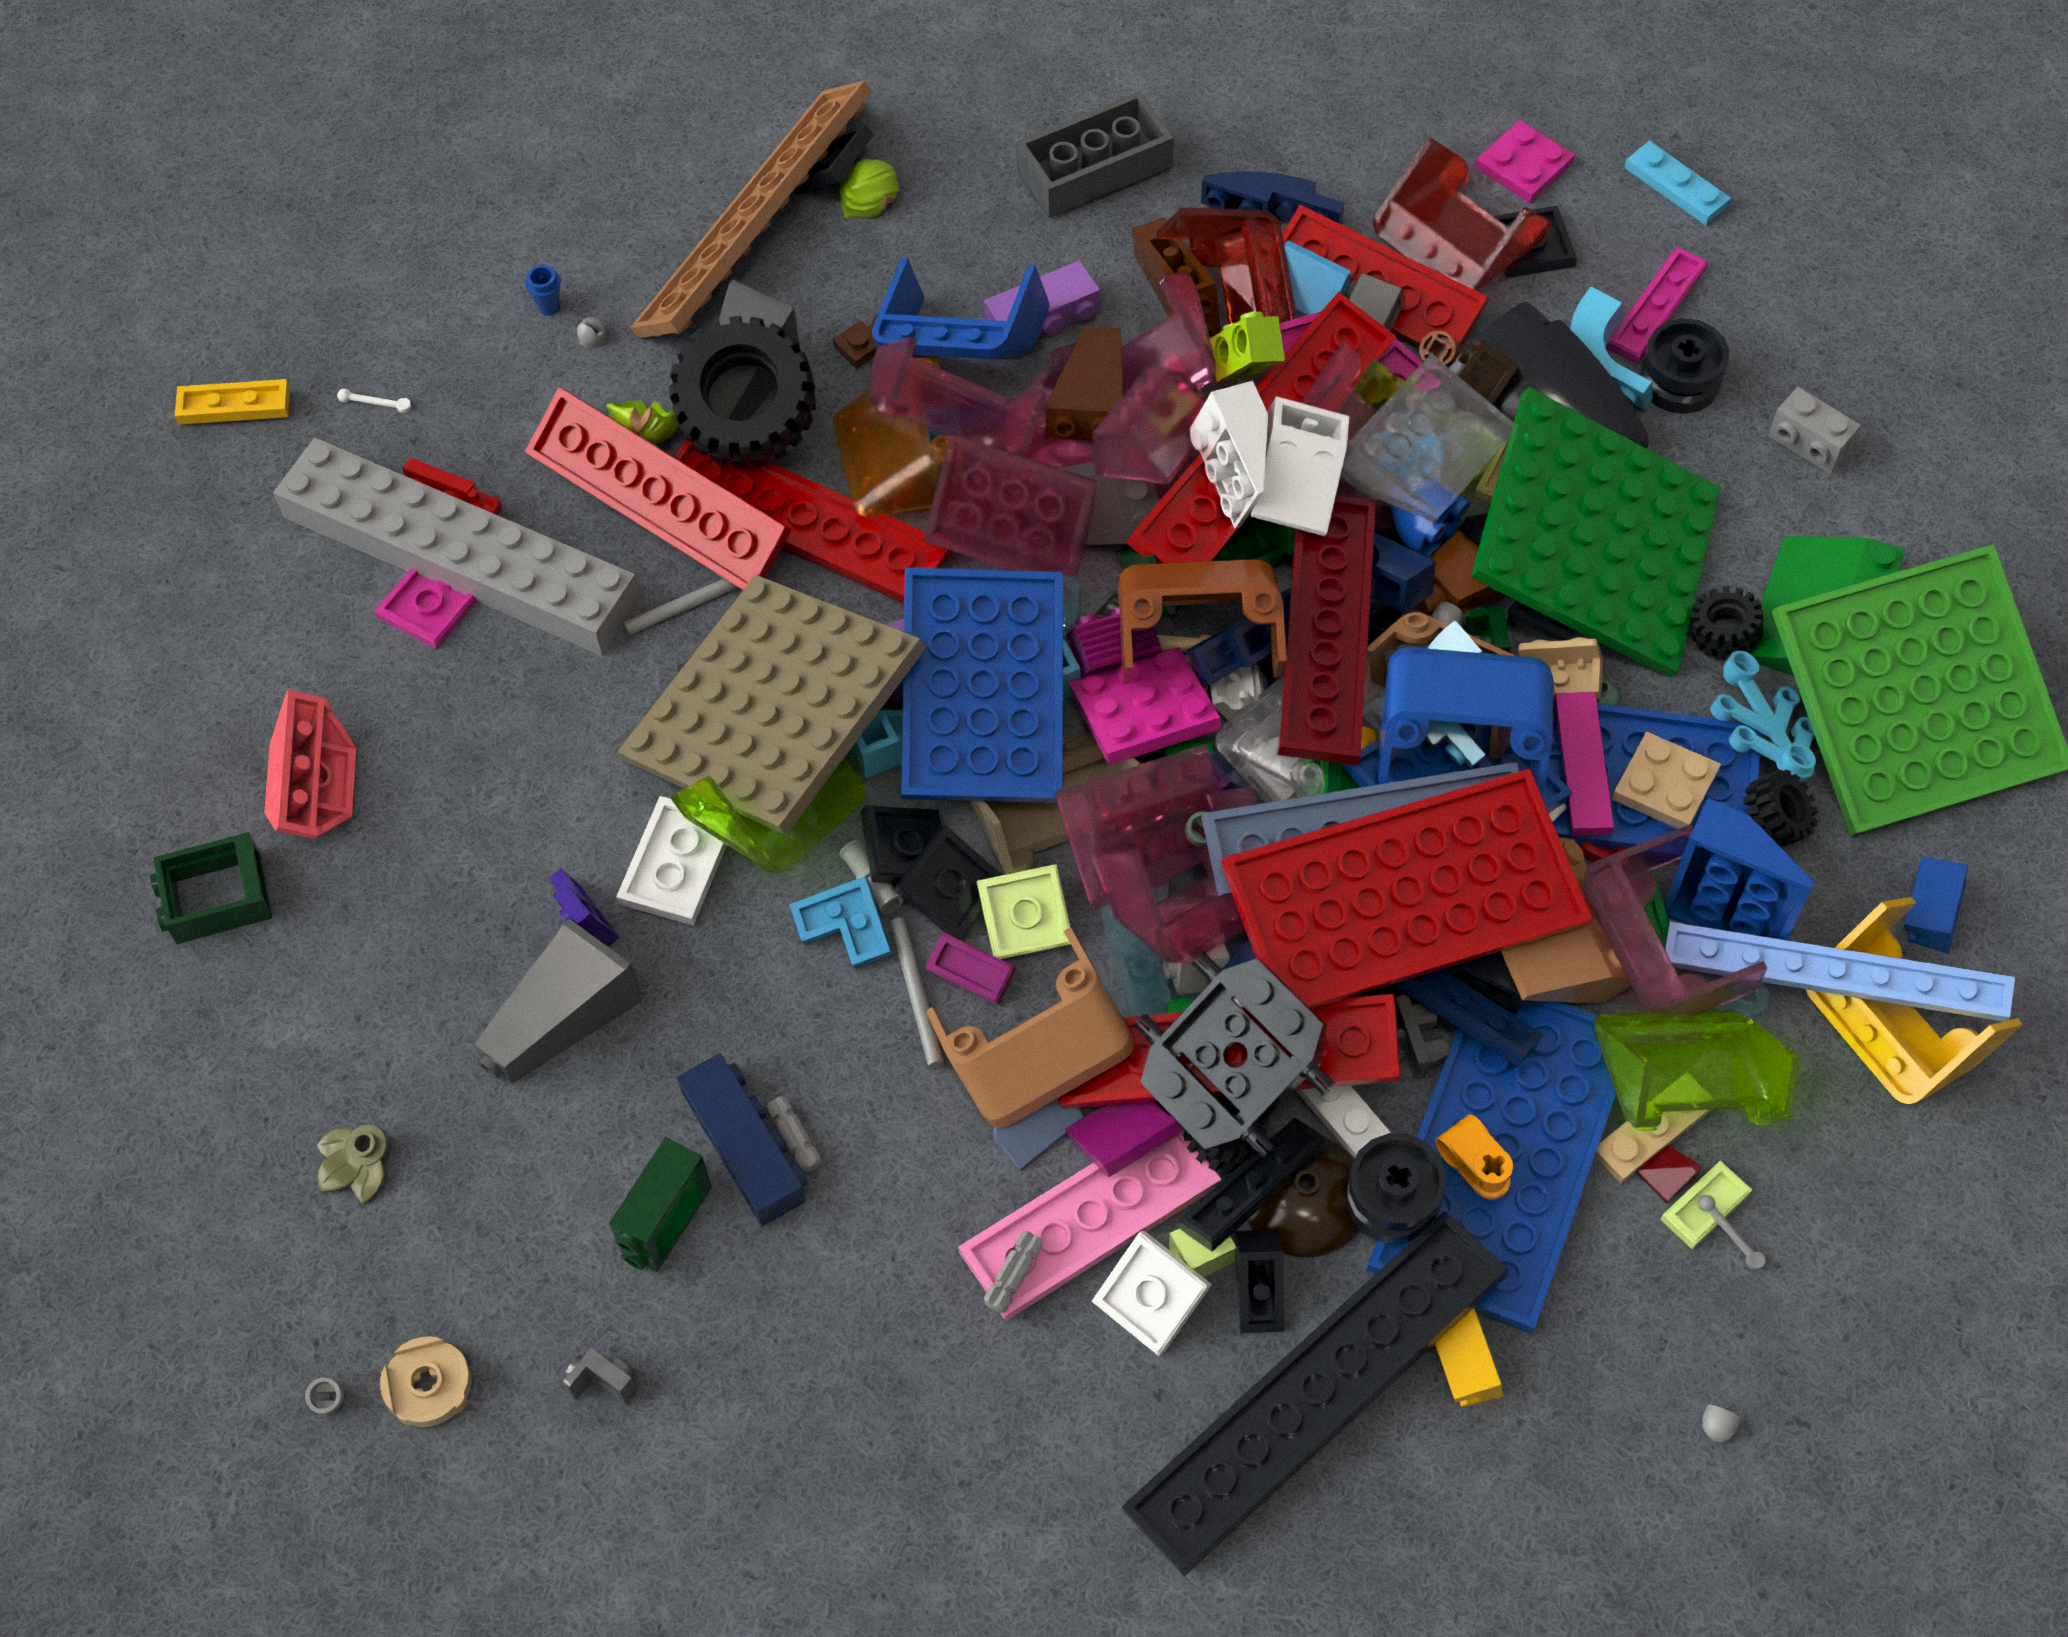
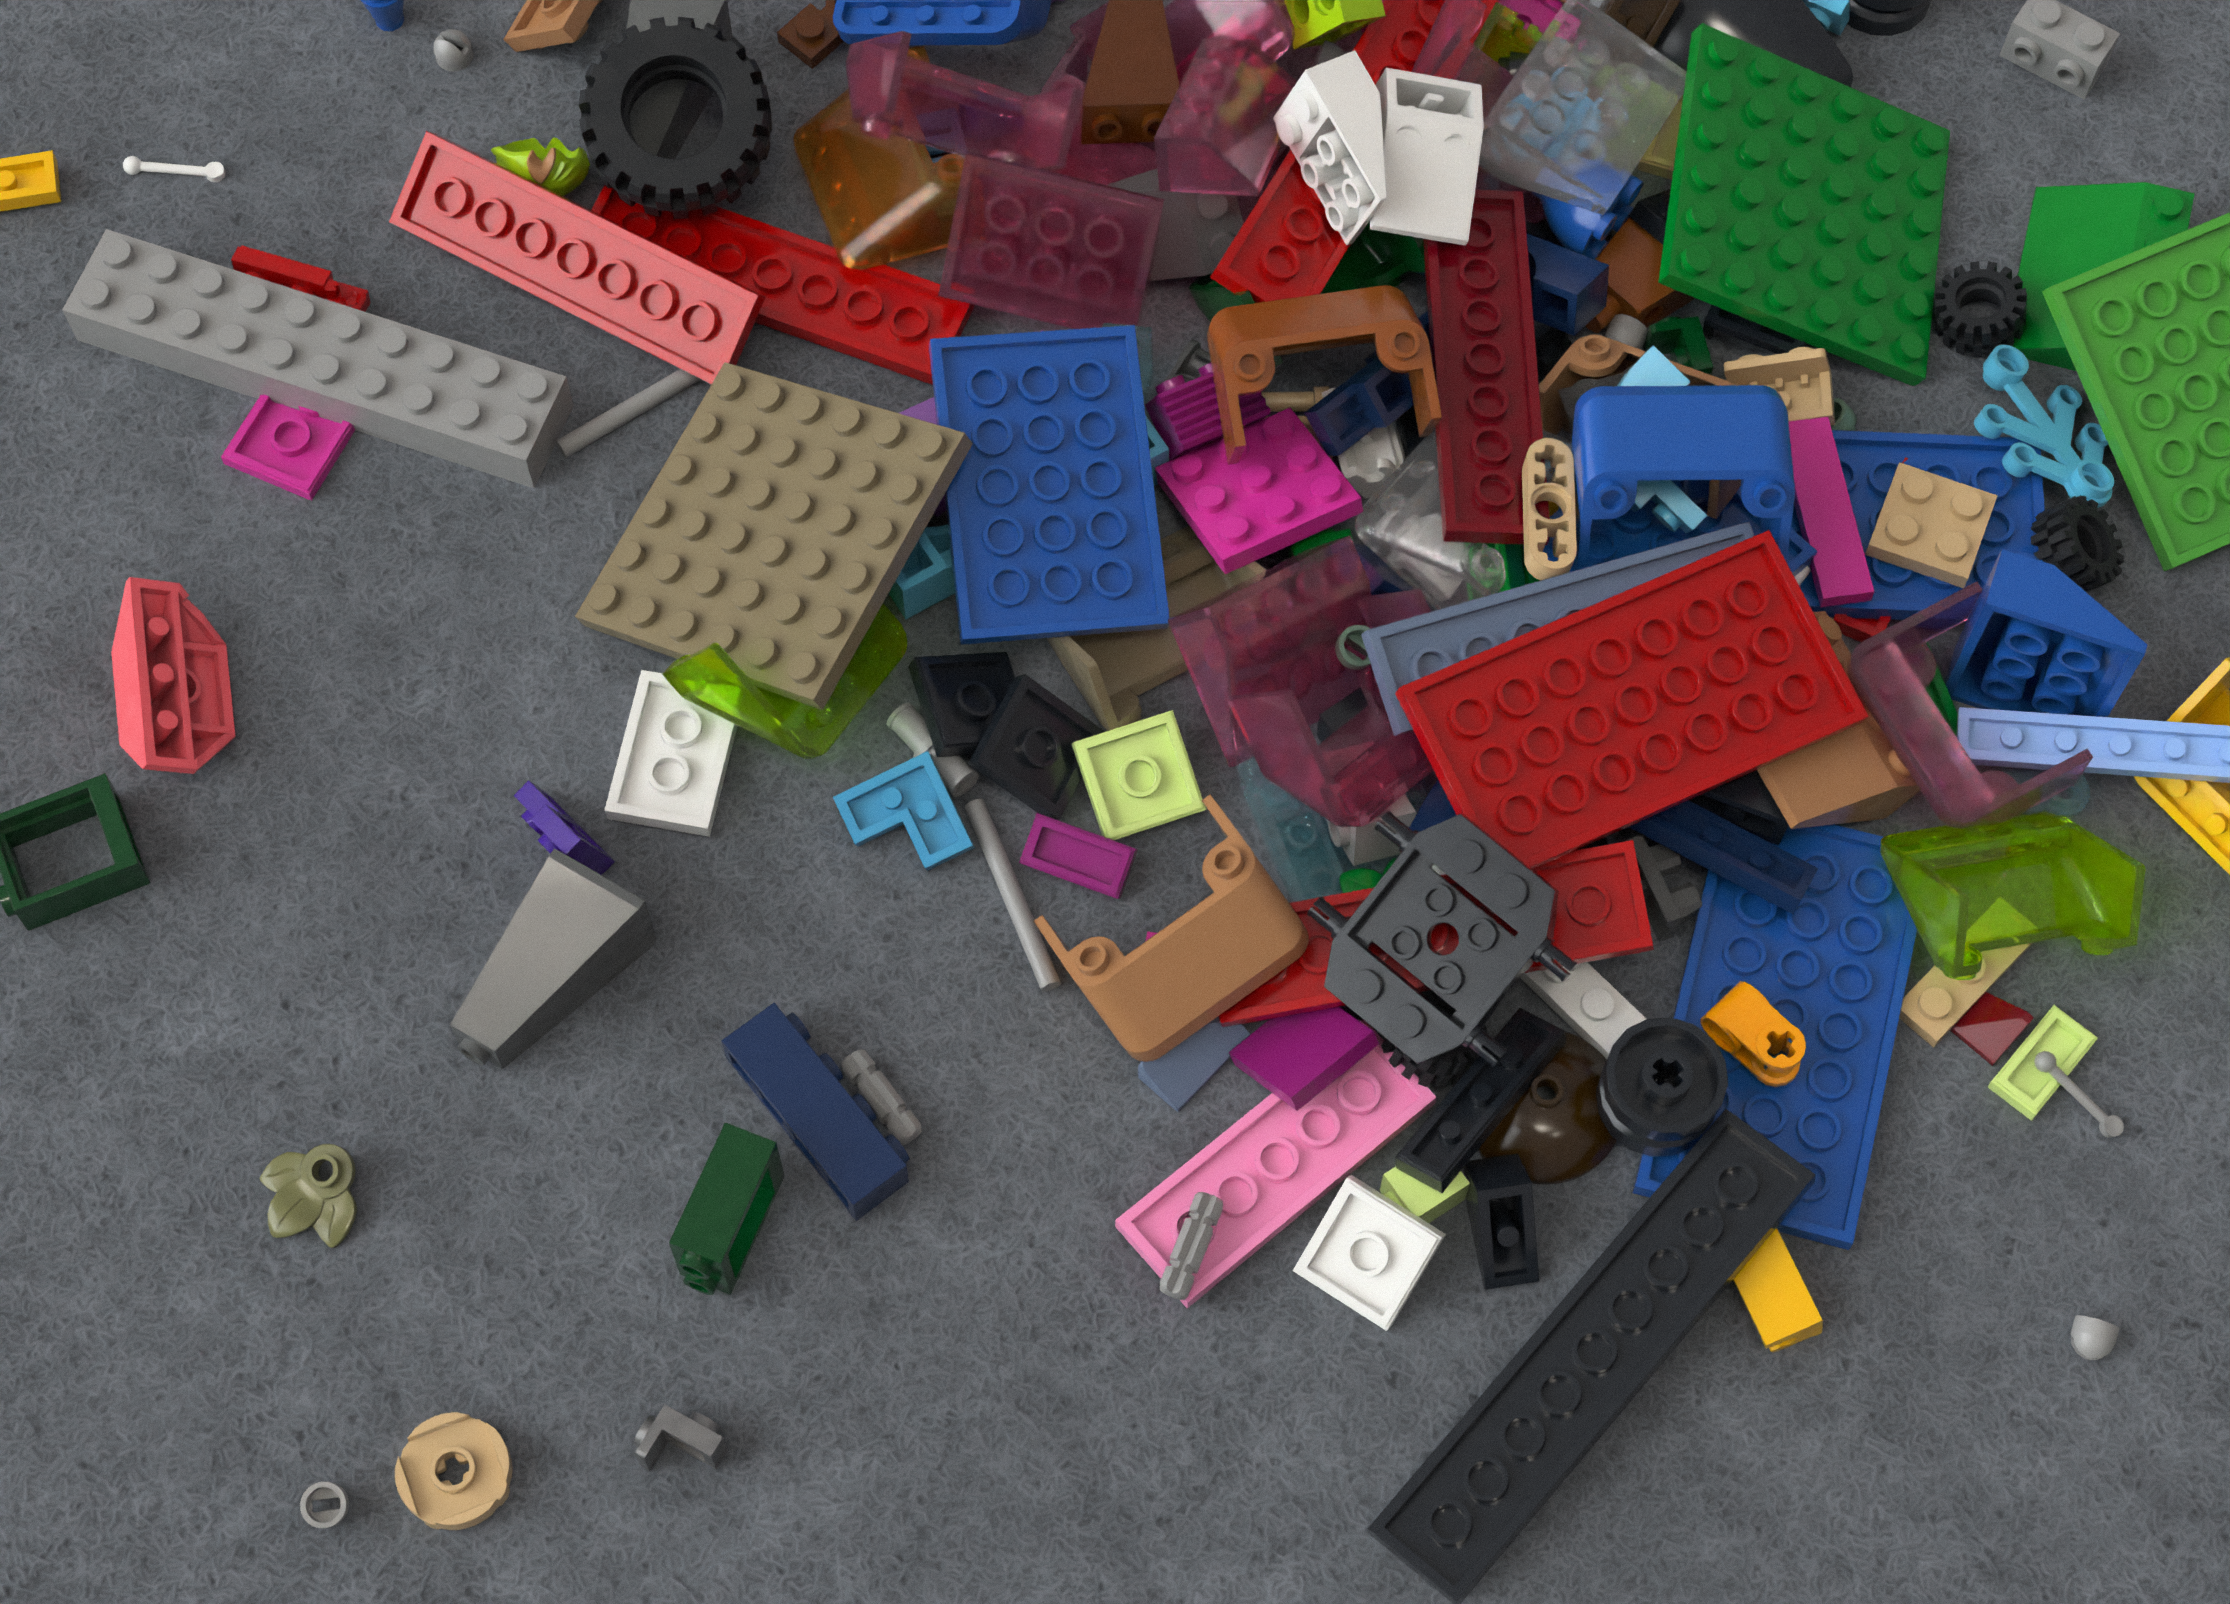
camera: 10 degrees left, 5 degrees up
(1371, 725) = (1560, 491): none -> tan beam

